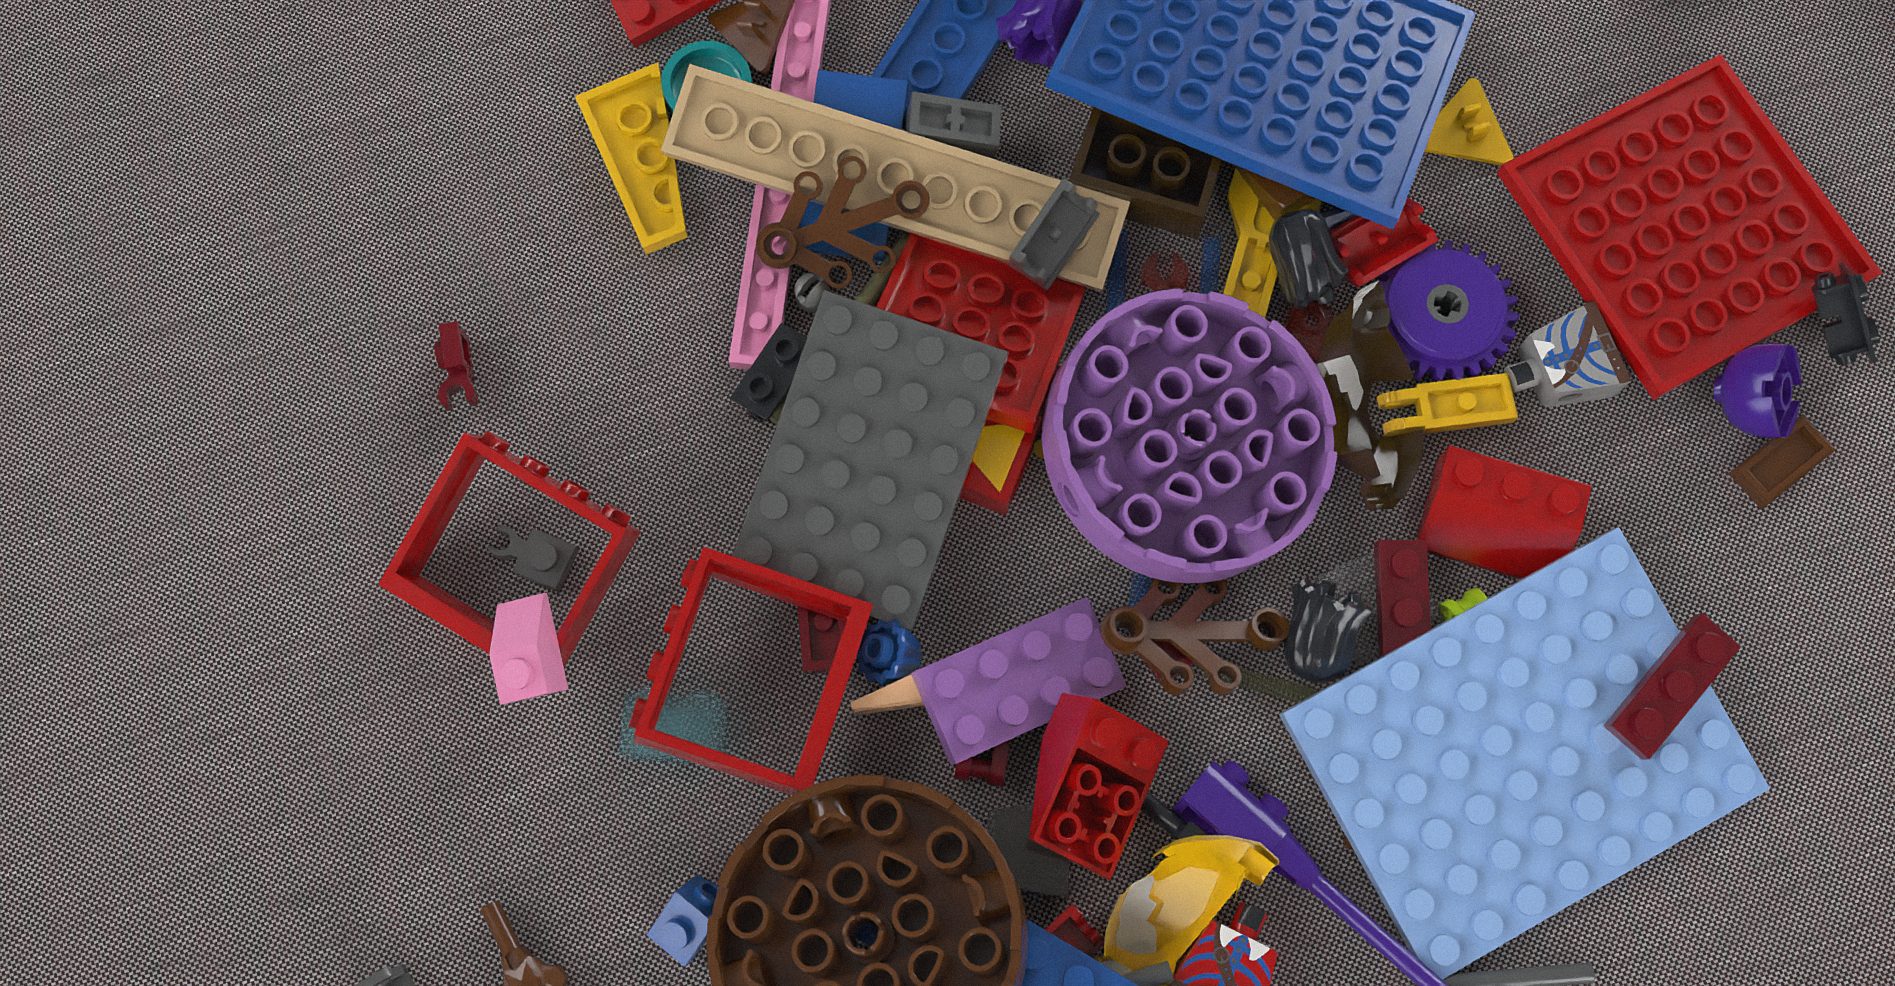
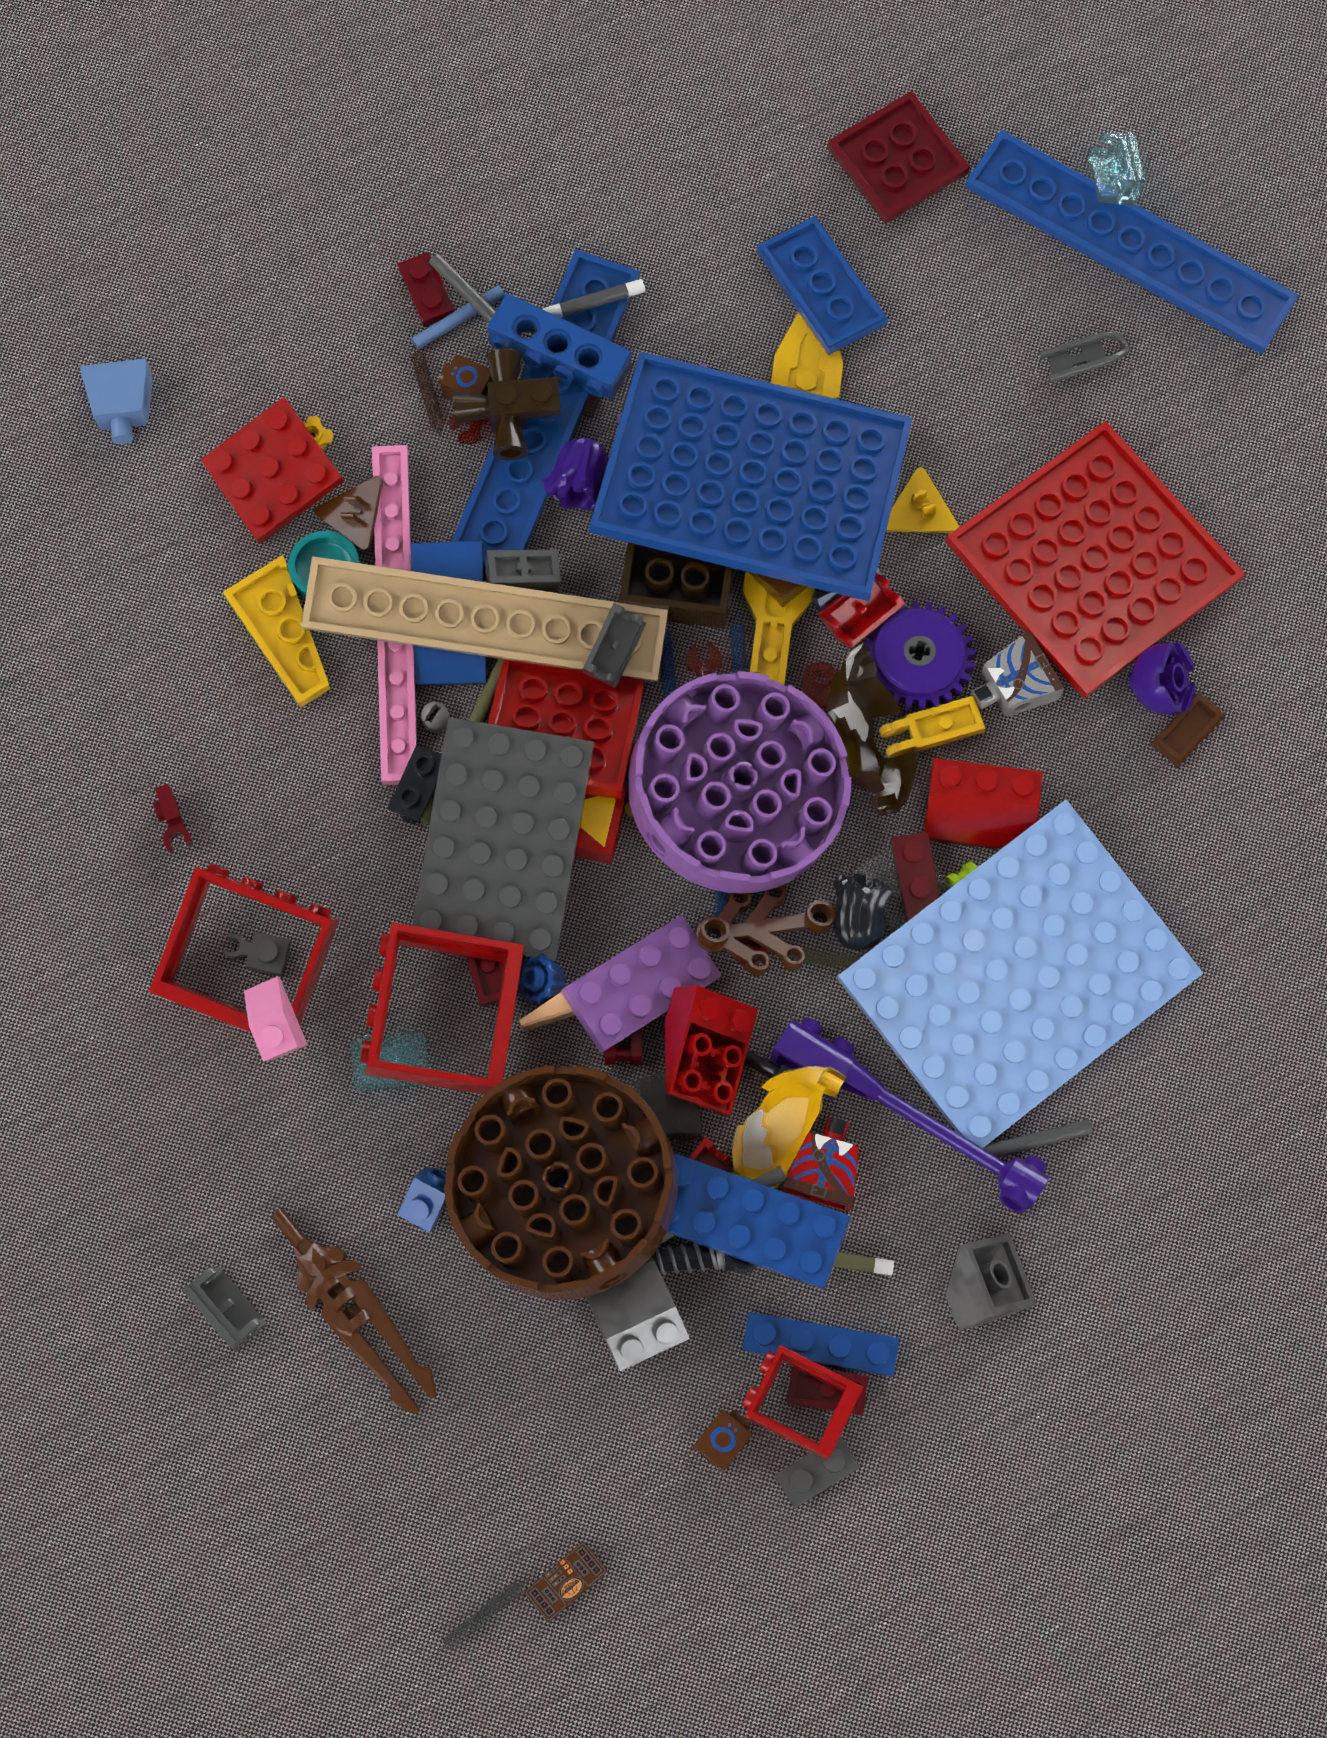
camera: 10 degrees left, 0 degrees up
(835, 226) = (445, 664): reddish brown plant -> none
(1305, 258) = (807, 633): black piece -> none
(1672, 686) = (1118, 909): dark red plate -> none
(1853, 331) = (1214, 598): black hinge -> none

